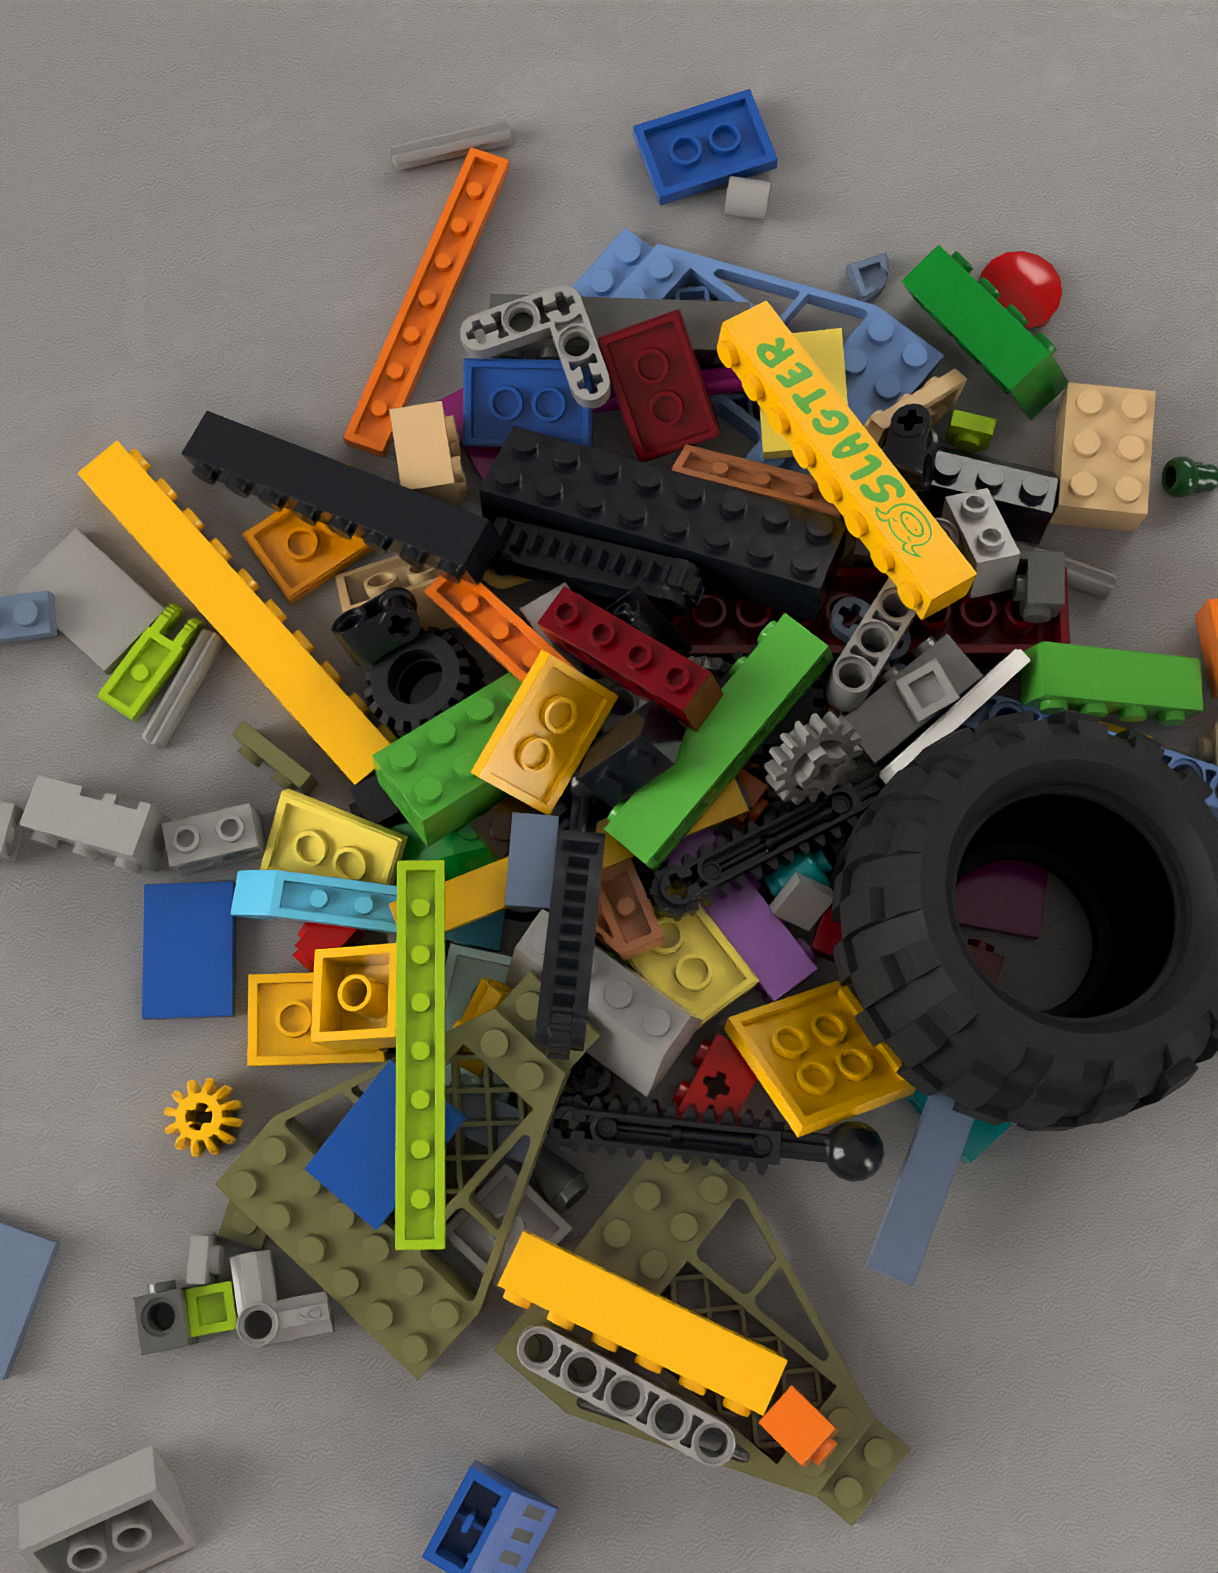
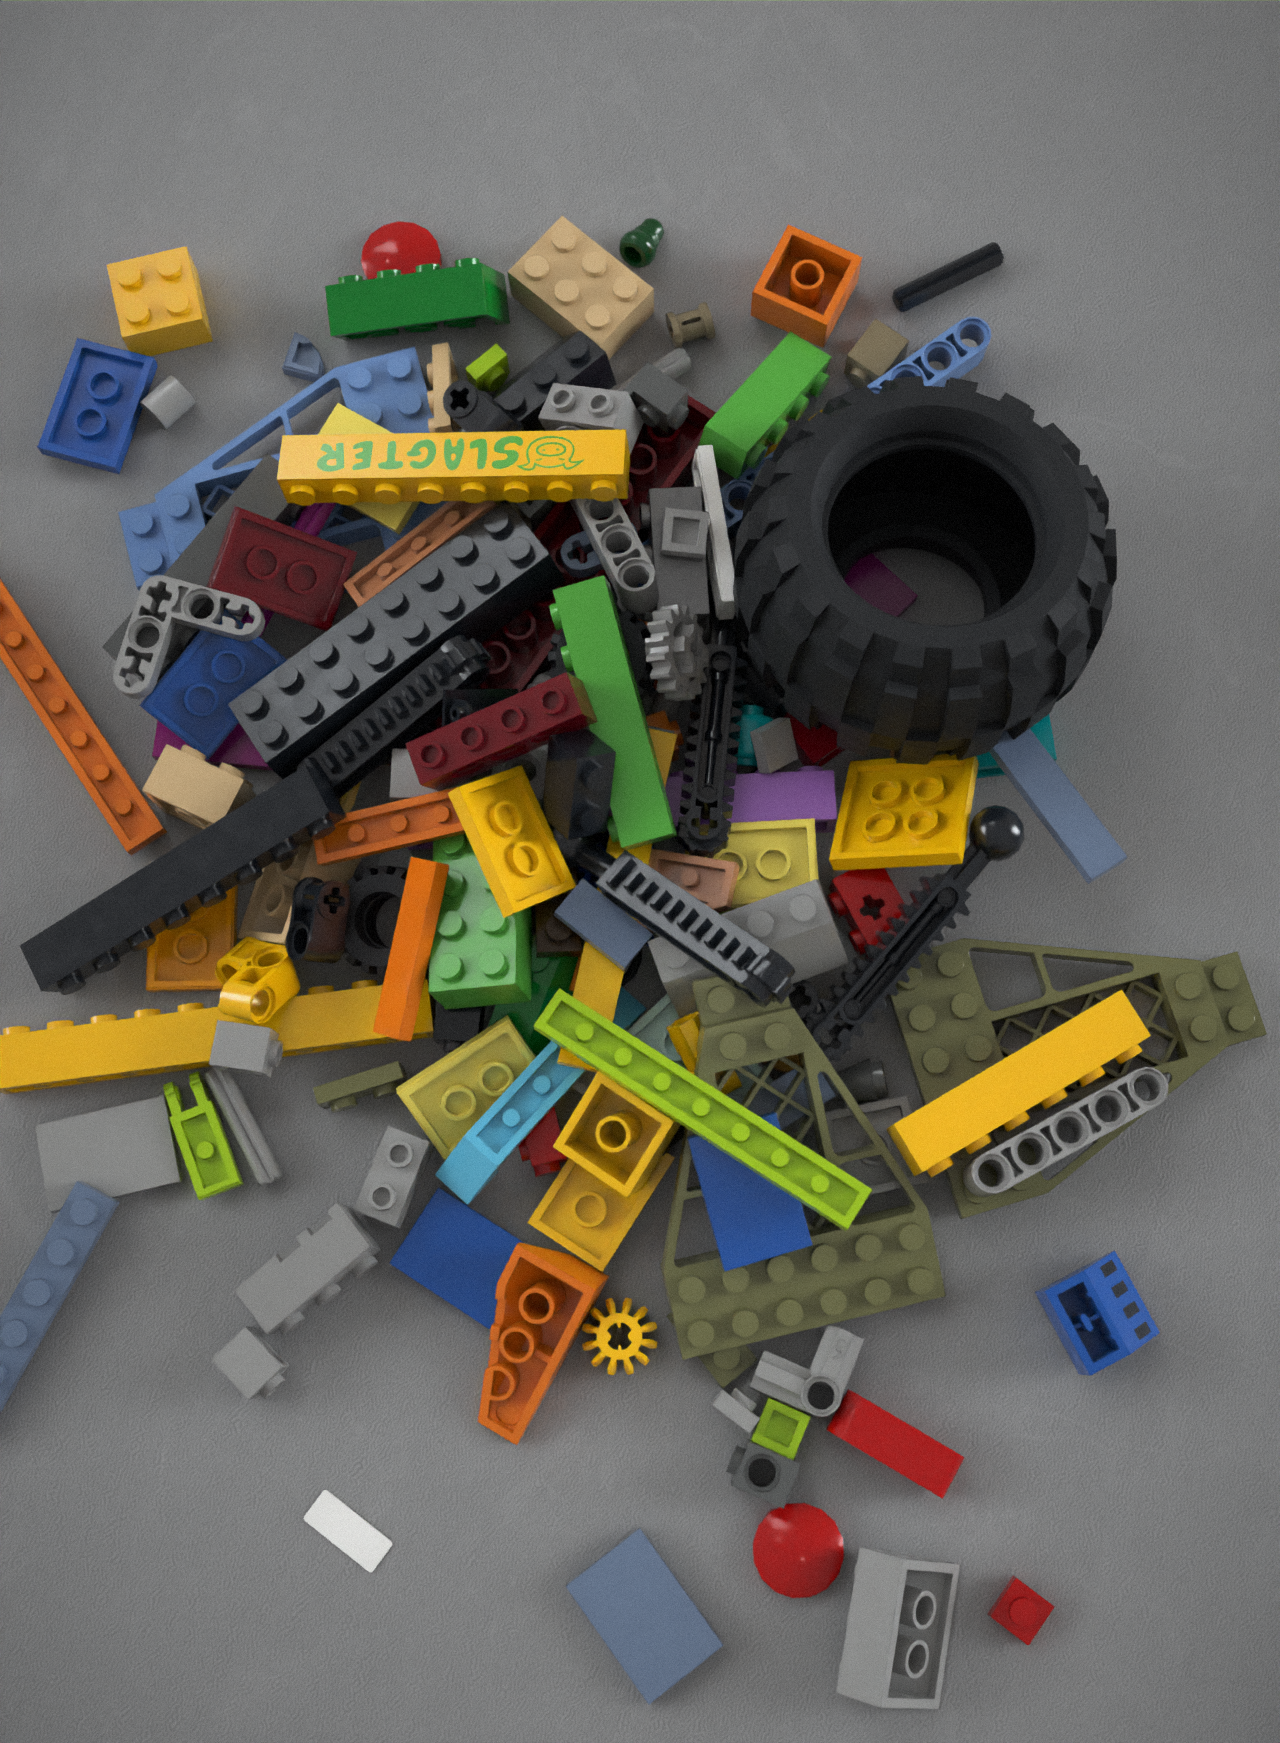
camera: 60 degrees left, 0 degrees up
(121, 1393) = (798, 1550): none -> red dish
(172, 1040) = (537, 1318): none -> orange wedge
(234, 644) = (245, 1049): none -> light grey brick
(262, 1419) = (895, 1443): none -> red beam
(299, 614) = (256, 980): none -> yellow piece
(402, 716) = (411, 949): none -> orange tile
(800, 1428) = (1176, 1015): orange brick -> none
(829, 129) = (159, 302): none -> yellow brick
(1142, 570) = (690, 325): none -> dark tan bush

